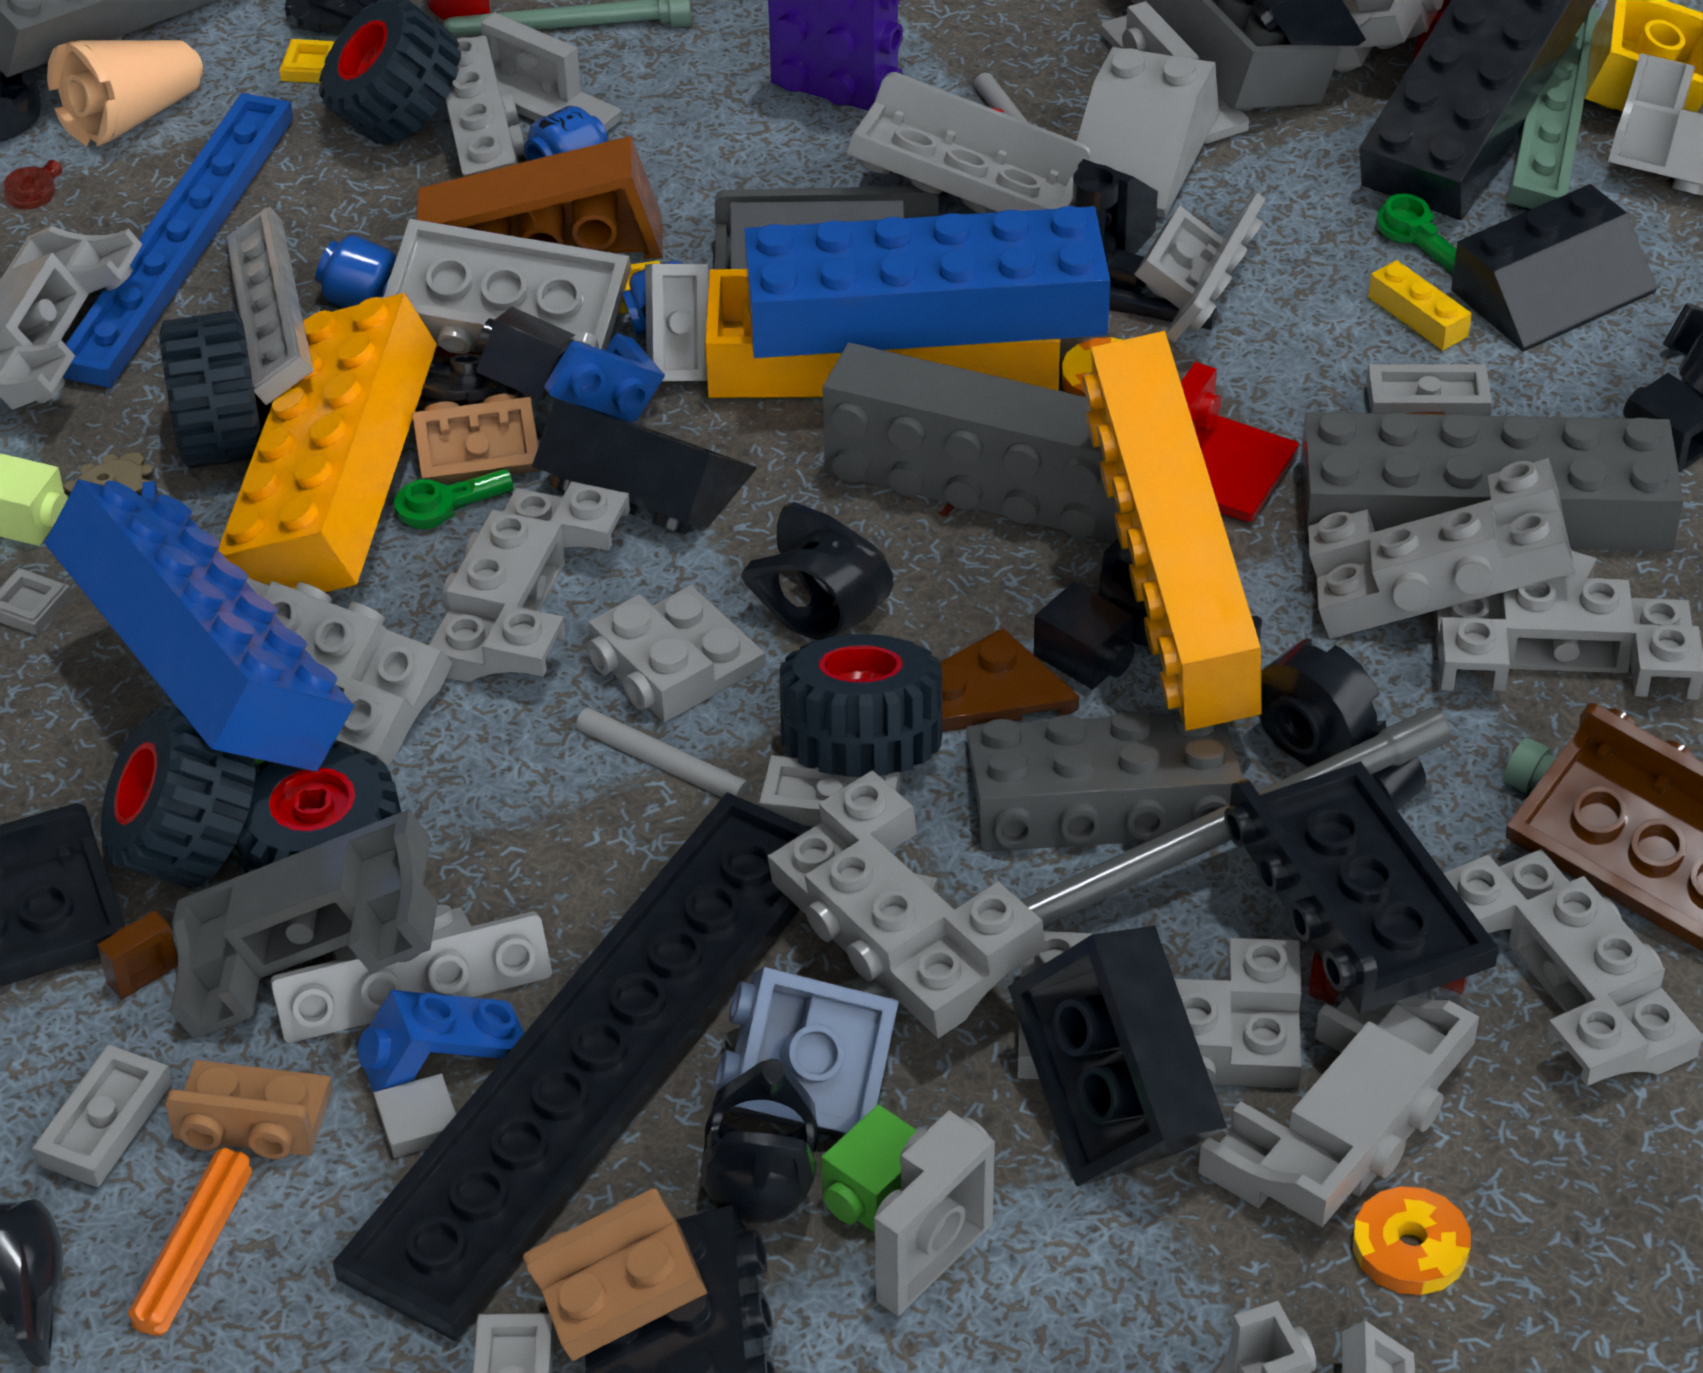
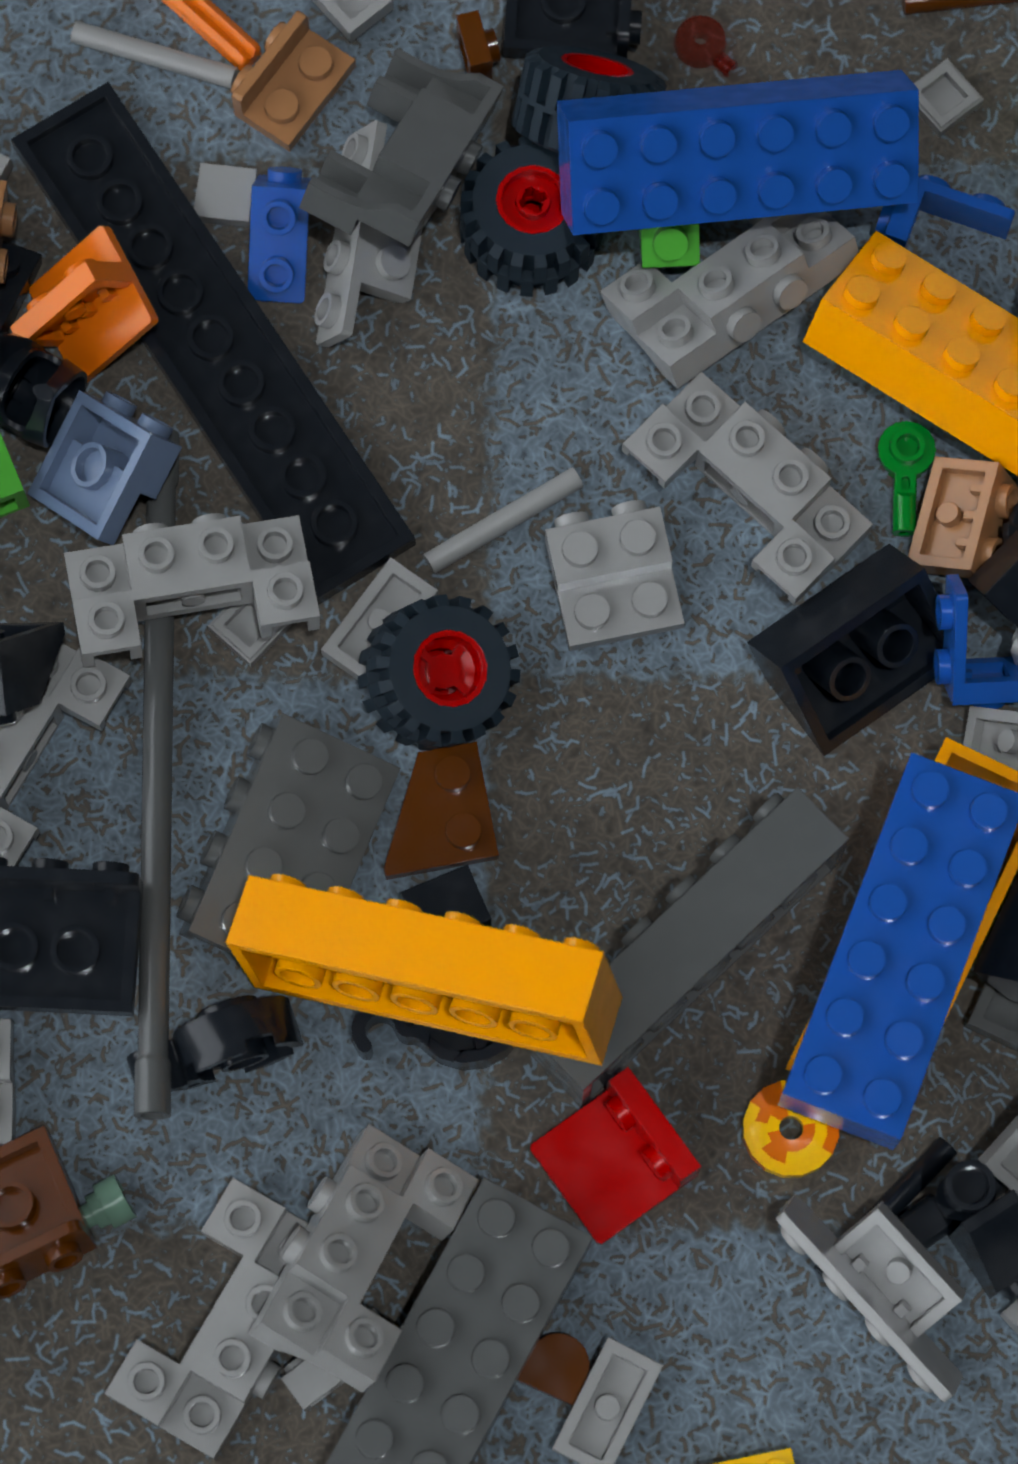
camera: 115 degrees right, 30 degrees up
(43, 789) = (704, 54): none -> clear red piece
(269, 1258) = (153, 54): none -> light grey bar
(621, 1142) = (88, 305): none -> orange bracket
(832, 567) = (610, 741): black helmet -> none

